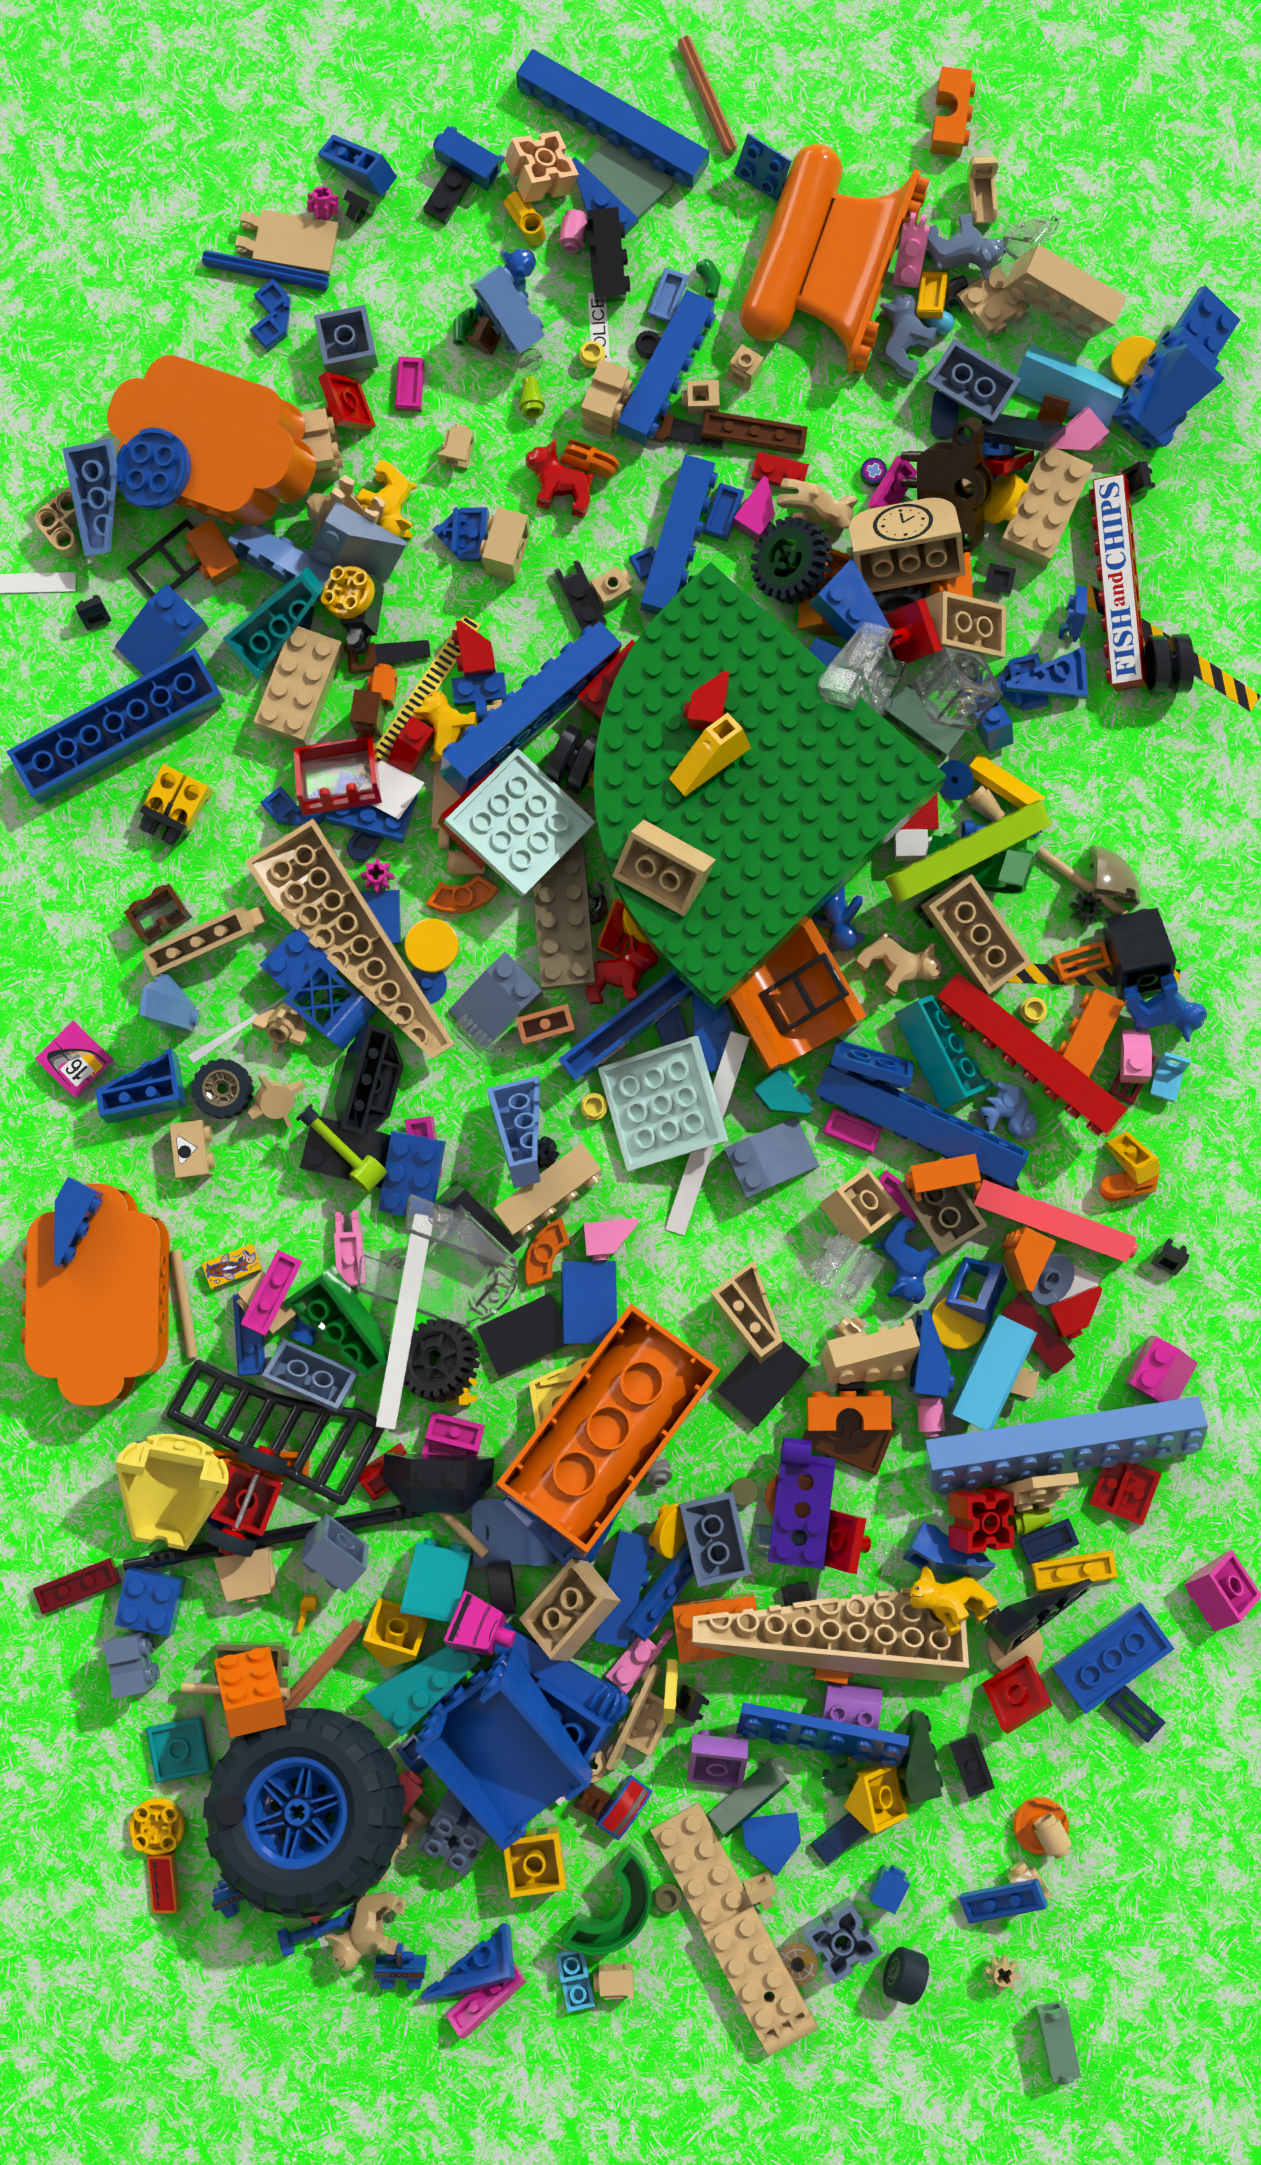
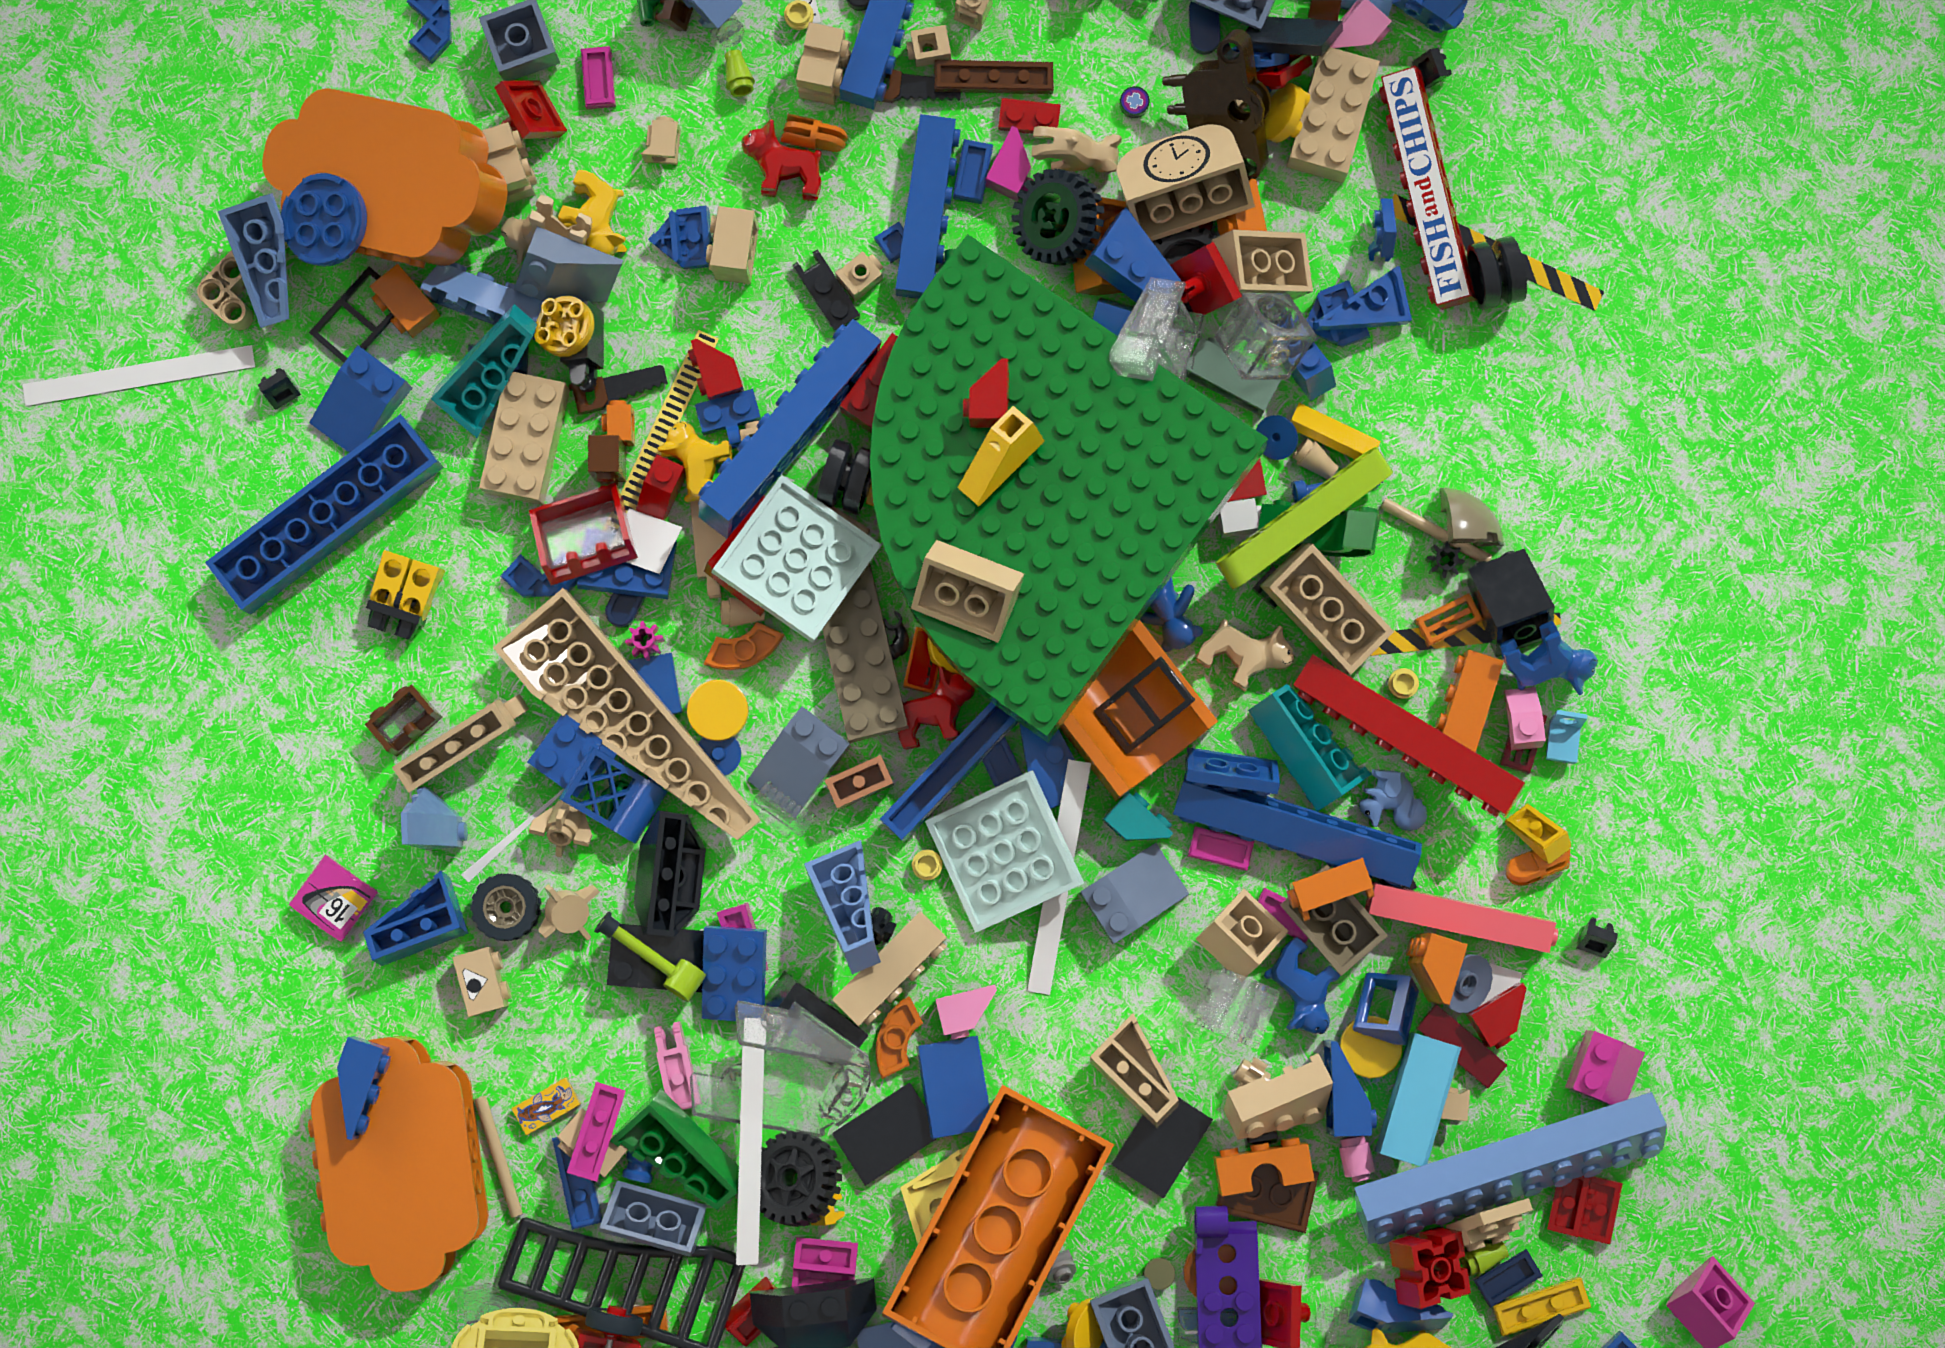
camera: 10 degrees left, 0 degrees up
(890, 489) = (1156, 121): dark pink hinge -> none
(999, 580) = (1293, 205): black tile -> none

